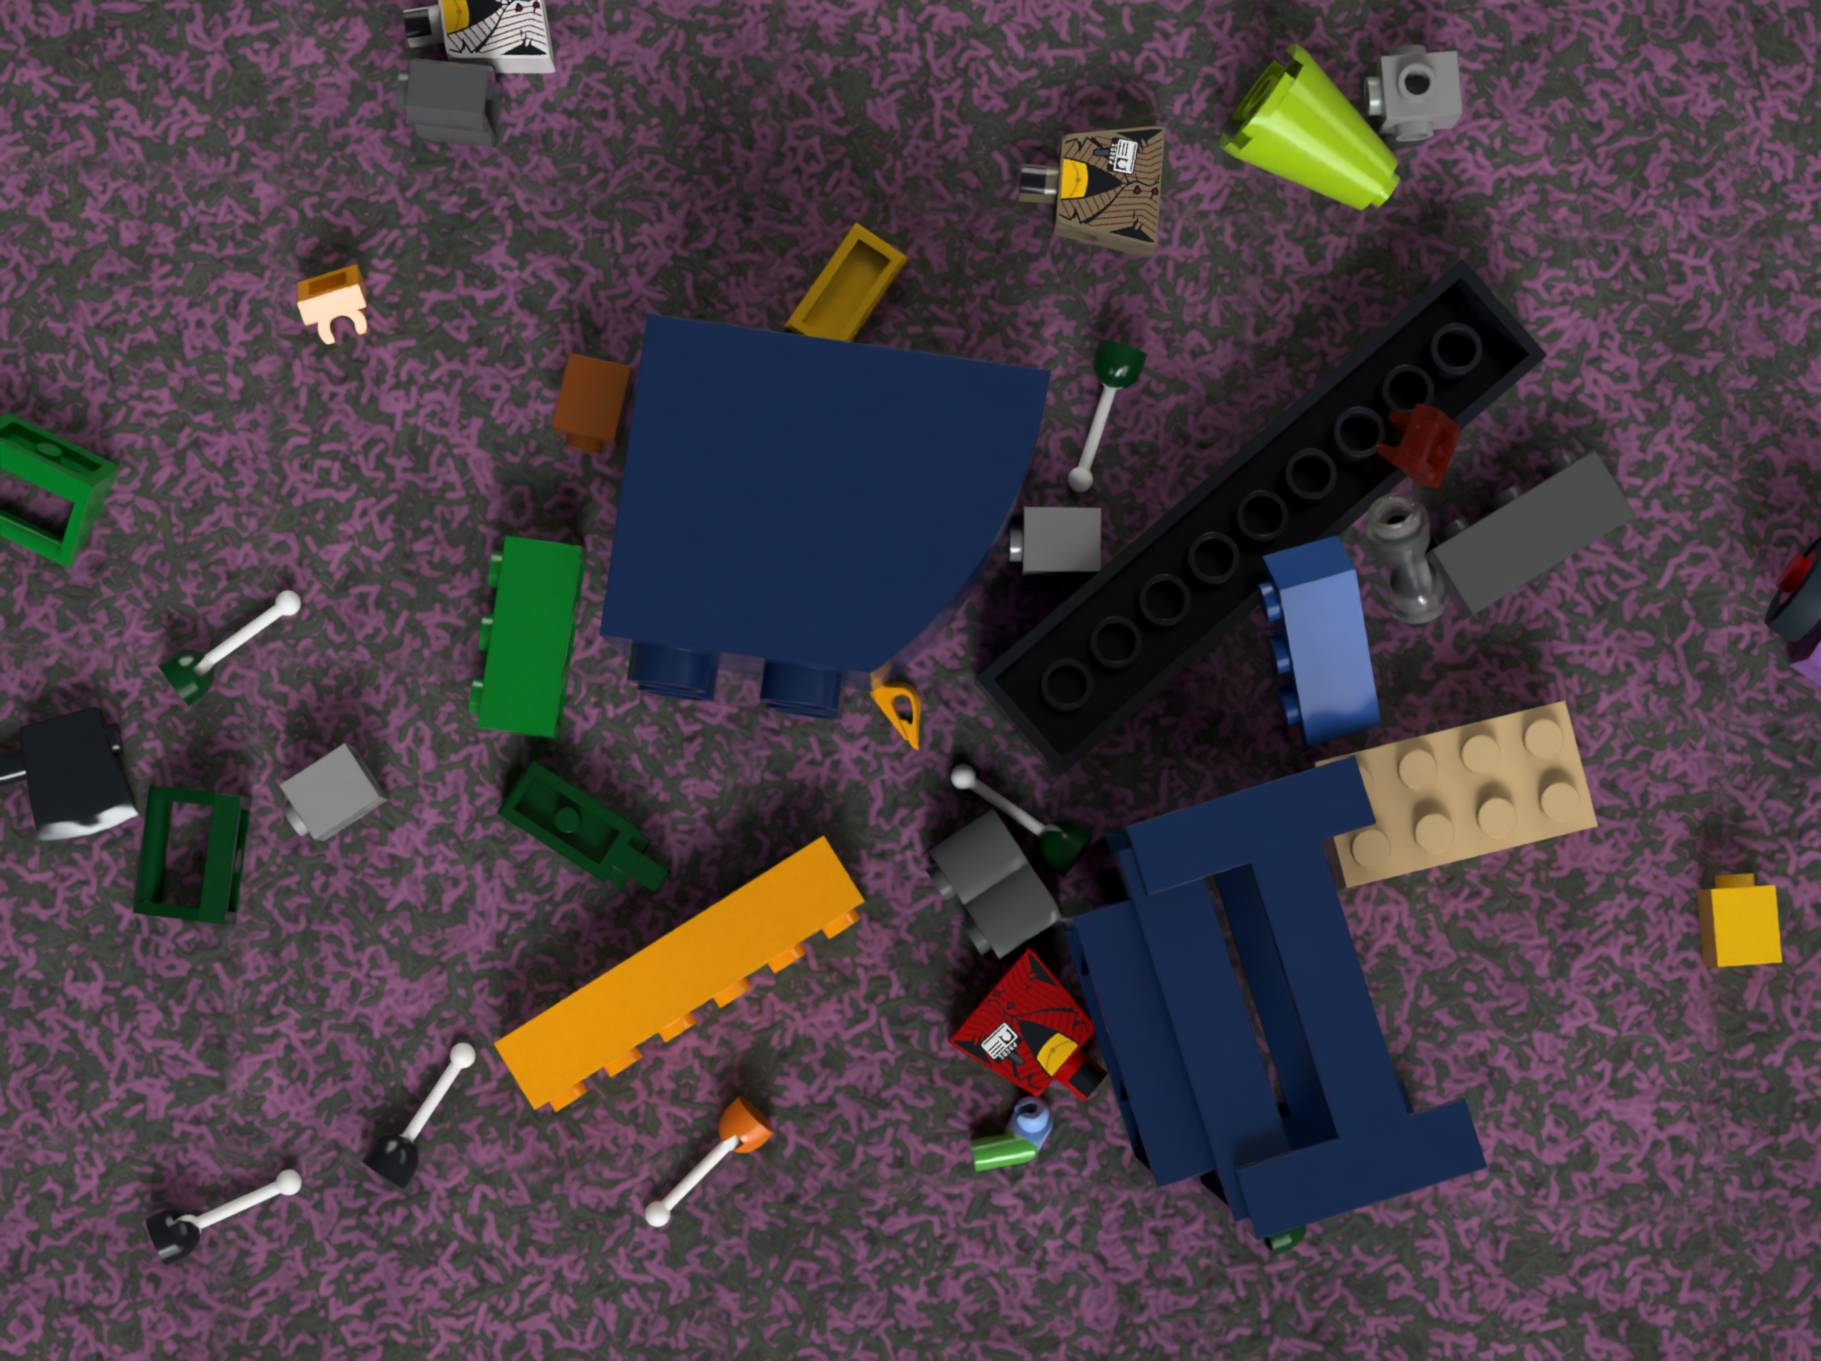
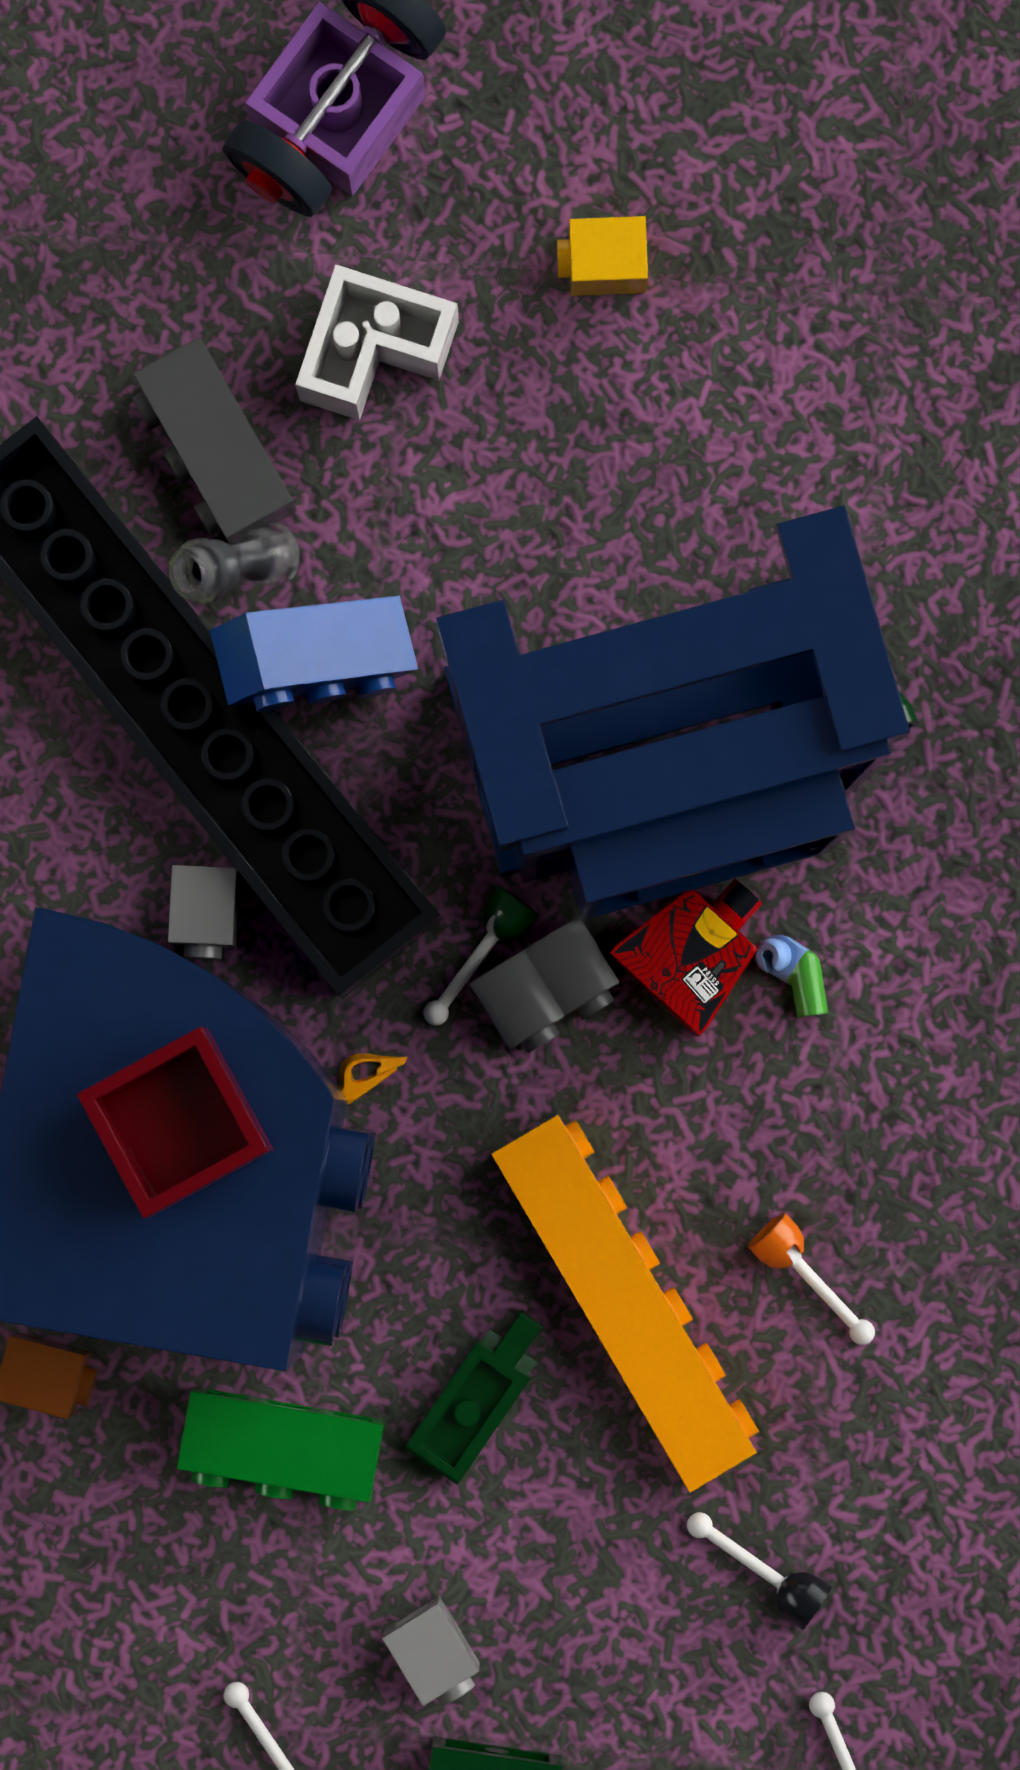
camera: 85 degrees left, 0 degrees up
(840, 515) = (175, 1122): none -> dark red piece
(1117, 369) = (31, 845): hinge -> none
(1425, 445) = (124, 539): clear red tile -> none
(1464, 795) = (470, 515): tan brick -> none
(1657, 685) = (367, 324): none -> white brick

